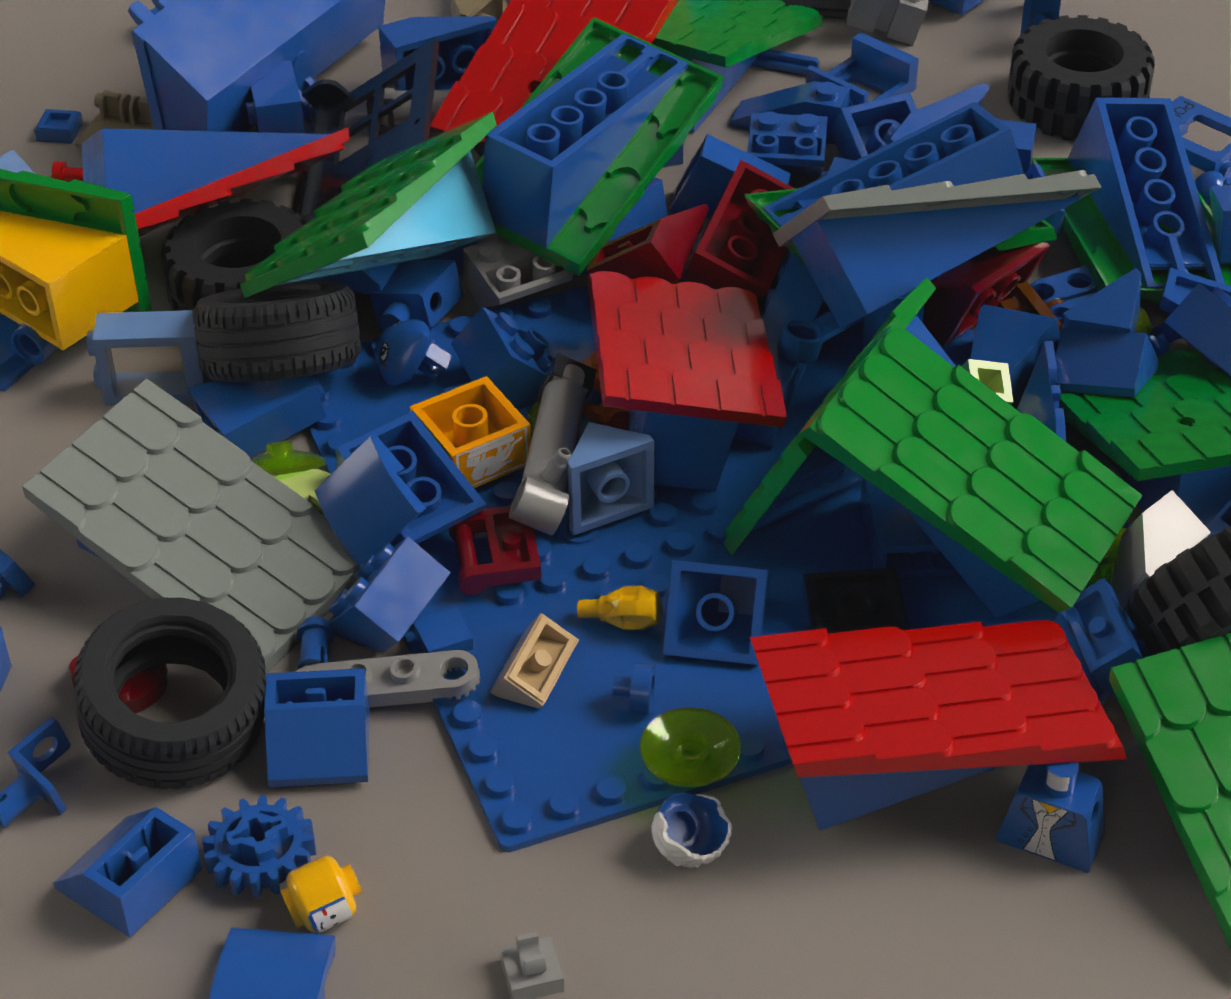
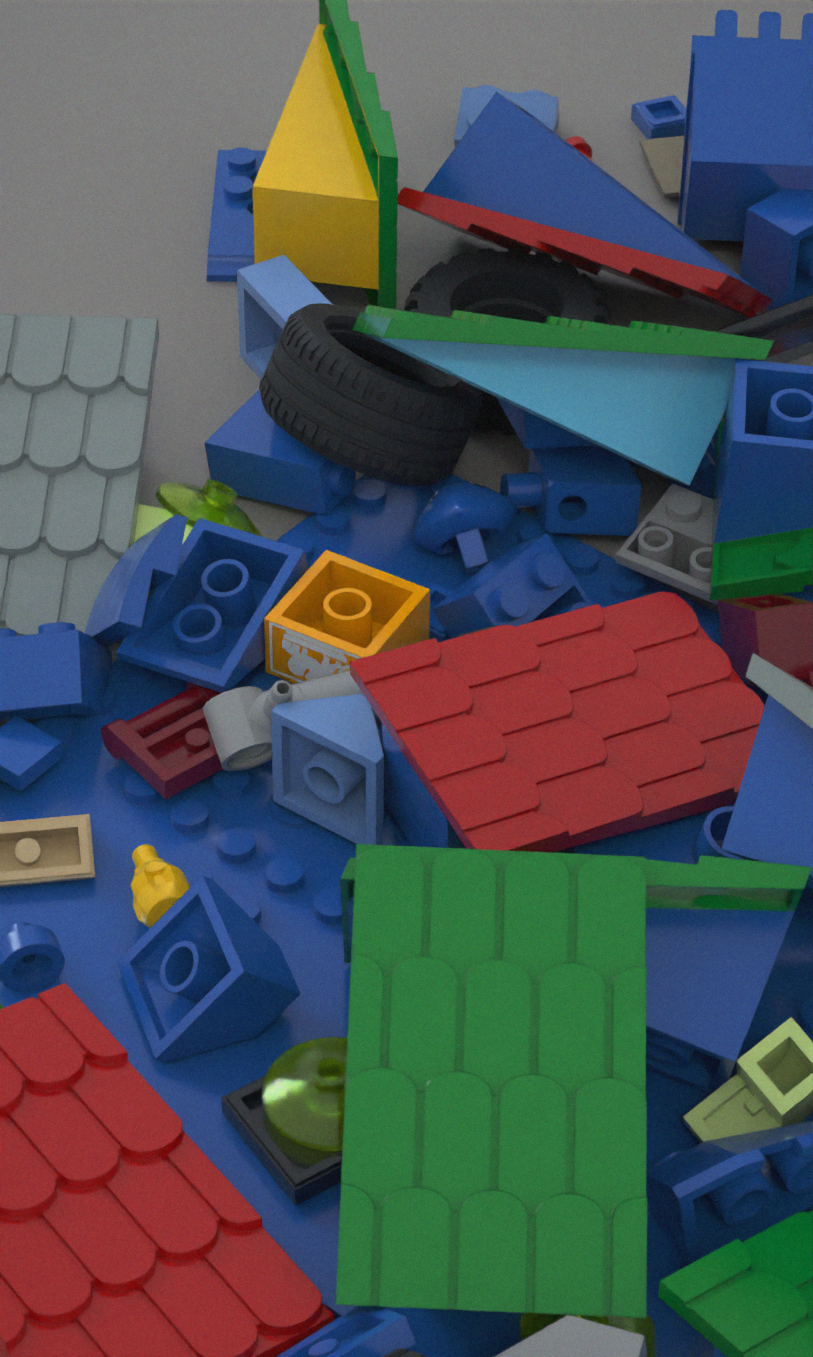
camera: 60 degrees right, 0 degrees up
(849, 589) = (302, 1097): none -> clear neon green dish

